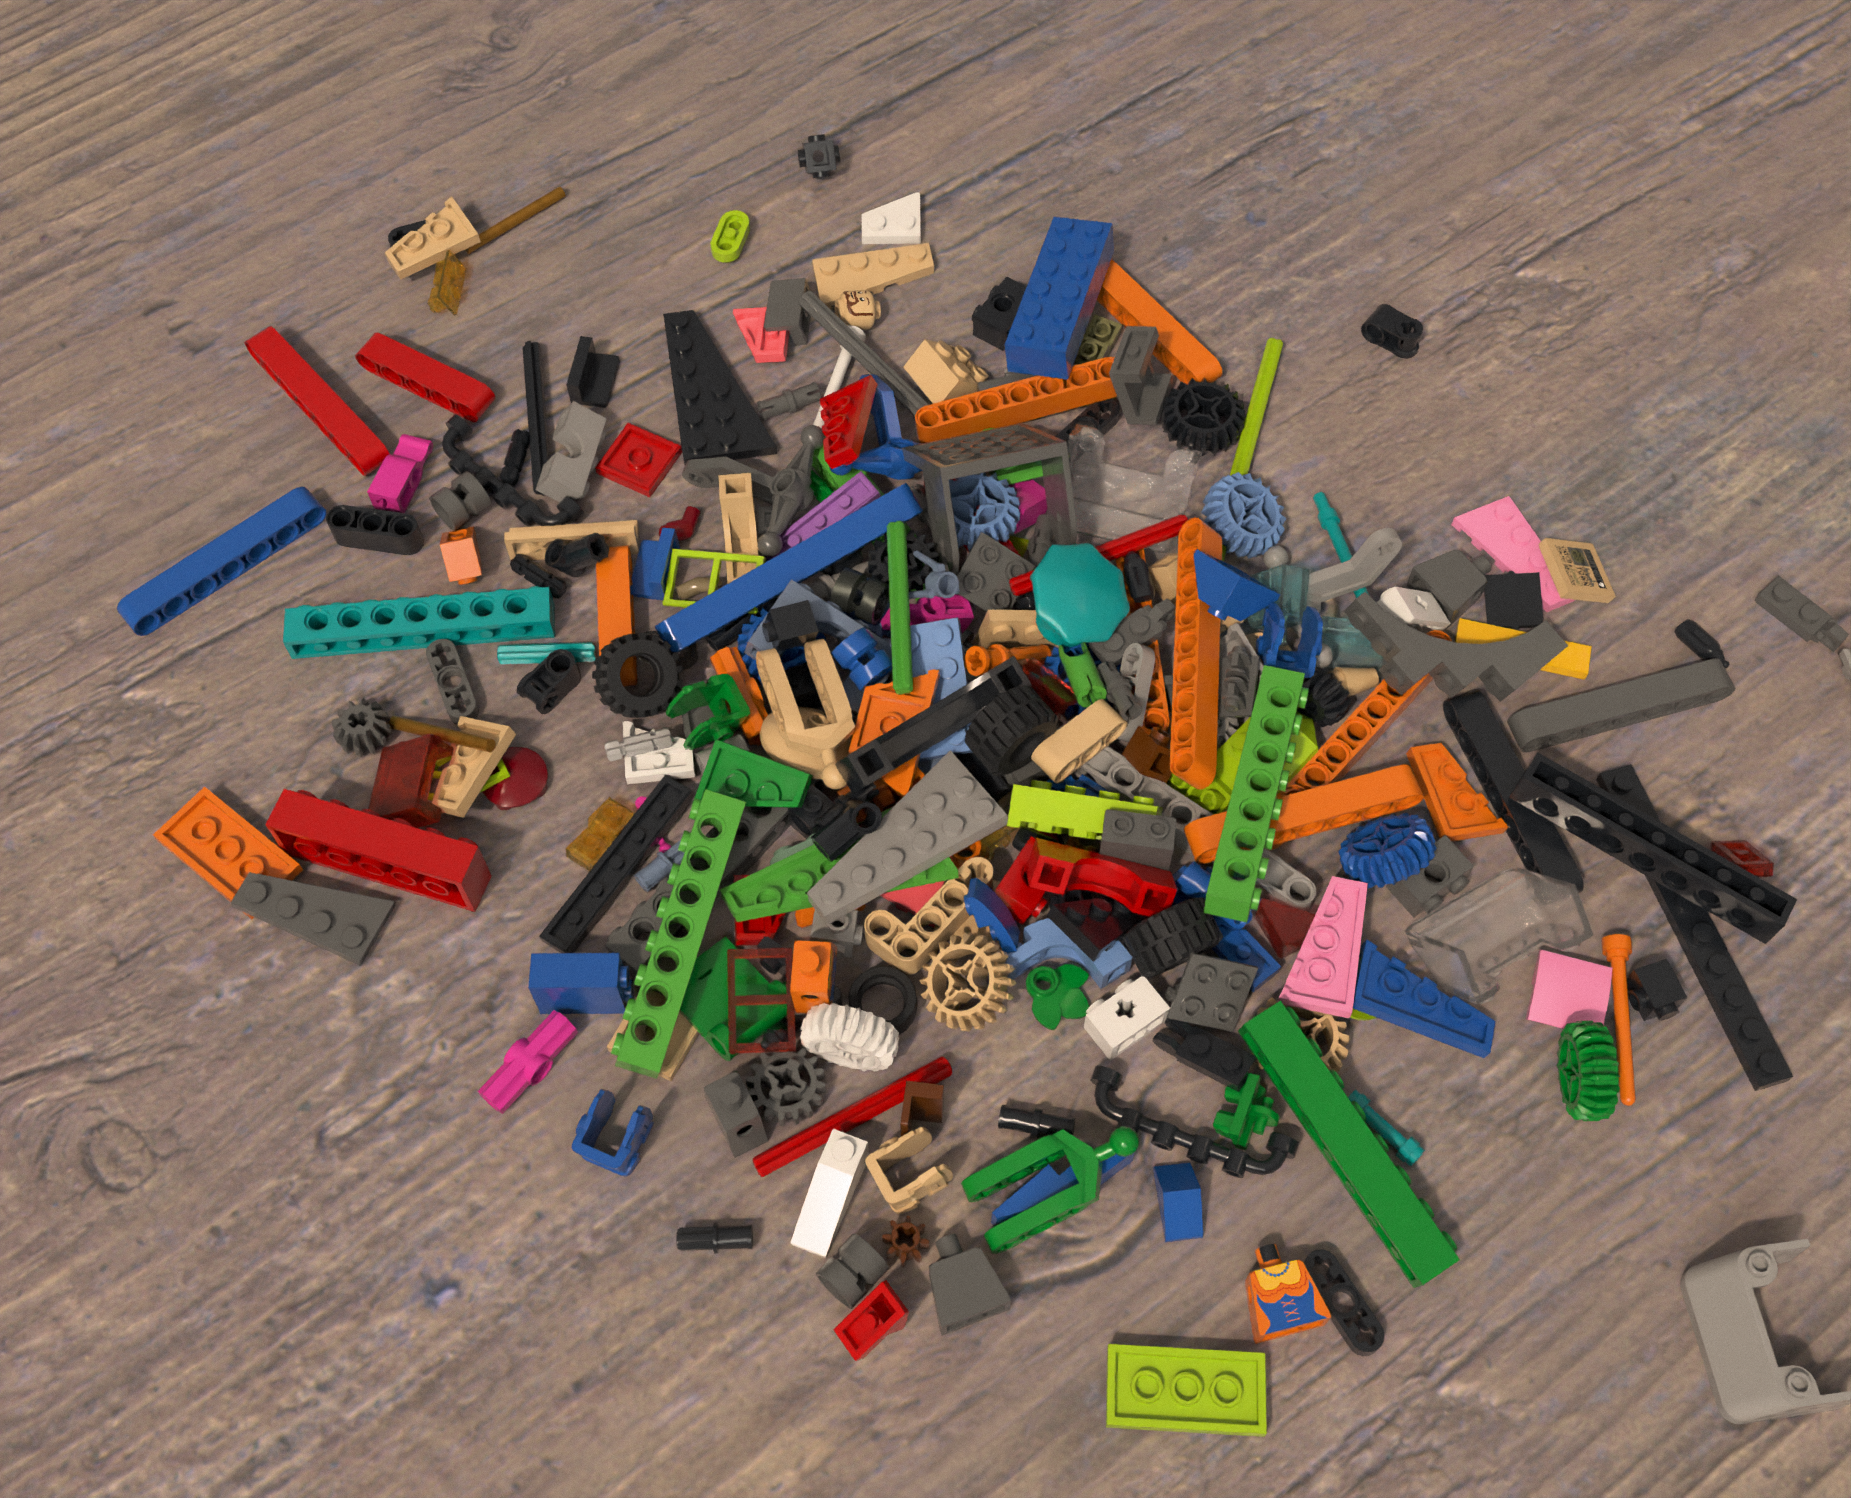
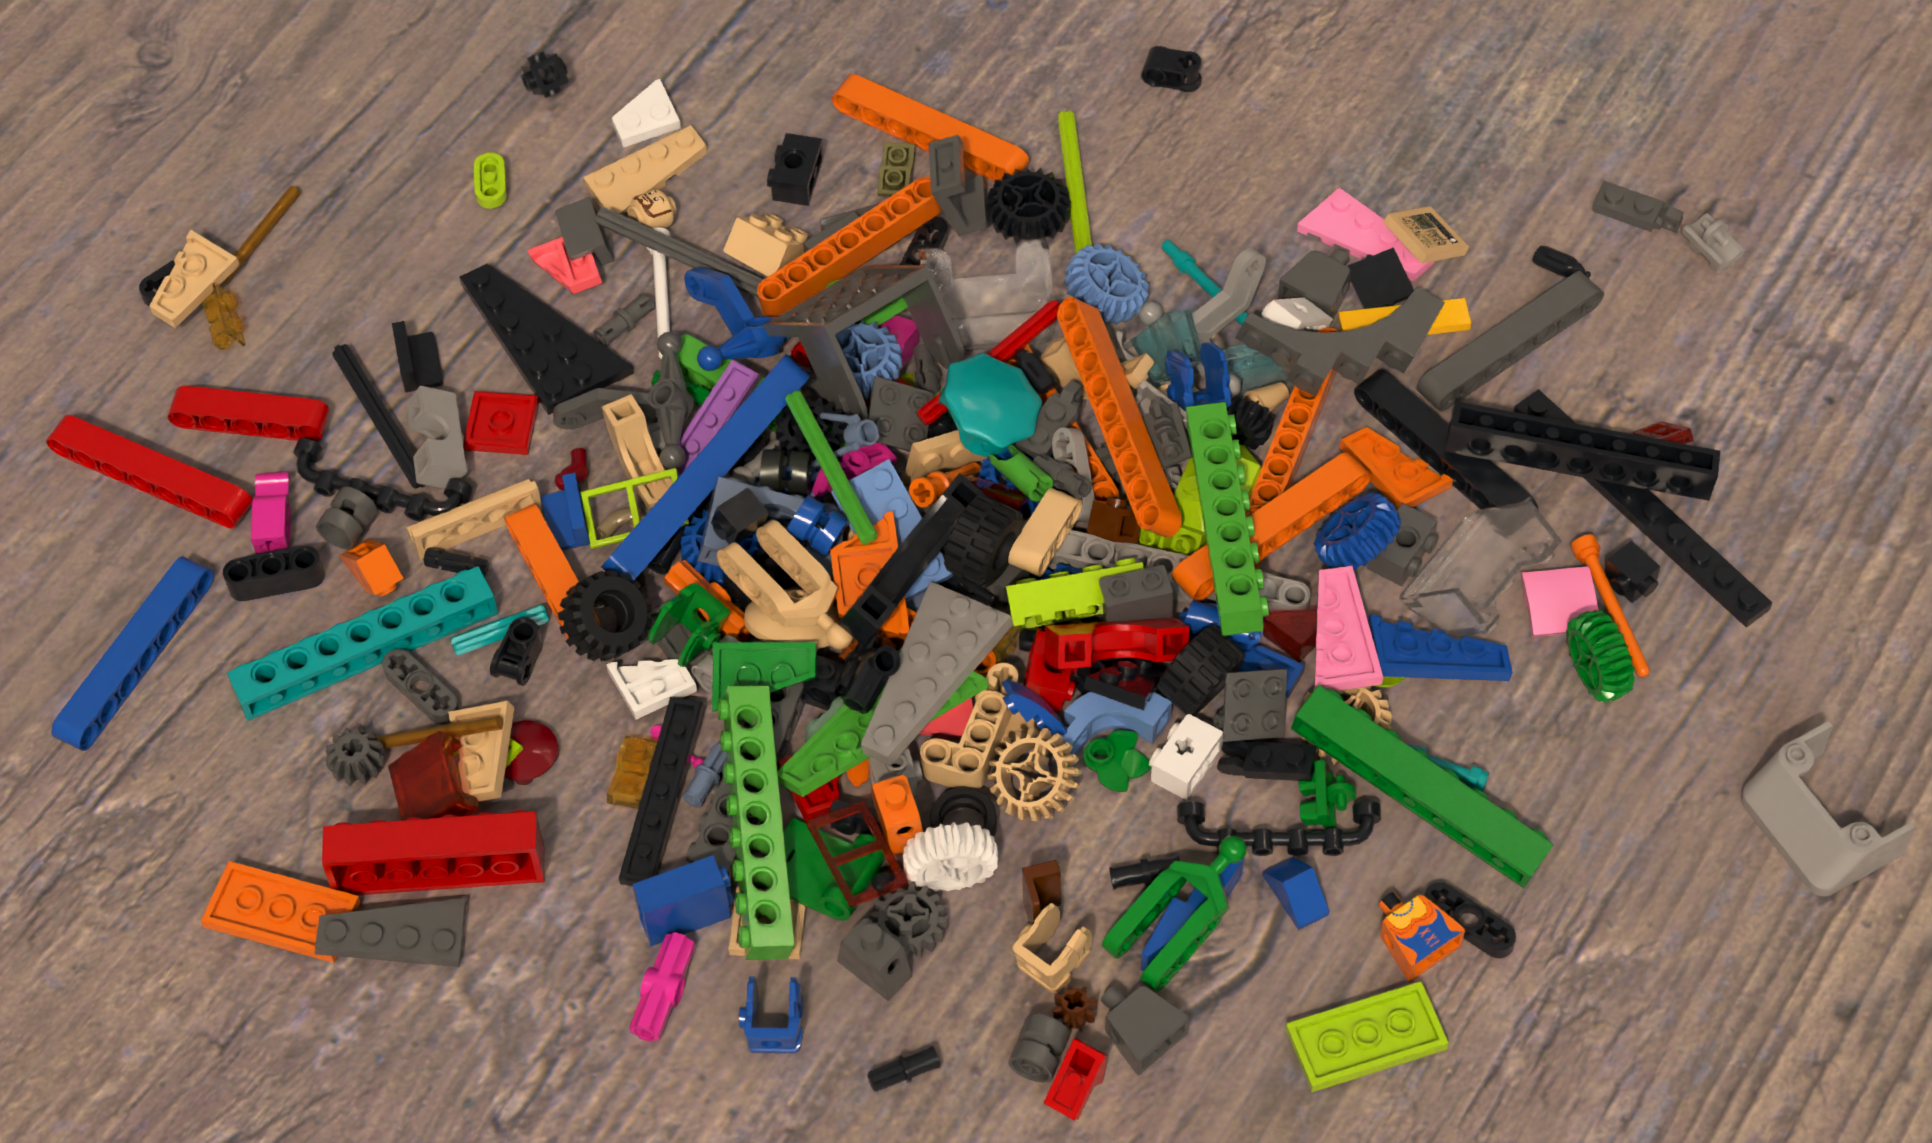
camera: 20 degrees left, 5 degrees down
(515, 457) = (377, 459): black axle -> none
(576, 555) = (488, 530): black piece -> none
(638, 744) = (633, 677): light grey axle -> none
(830, 1192) = (990, 994): white slope -> none
(846, 421) = (698, 316): red wing -> none
(848, 1118) = (973, 933): red axle -> none
(1059, 298) = (850, 136): blue brick -> none
(1229, 589) = (1127, 351): blue slope -> none

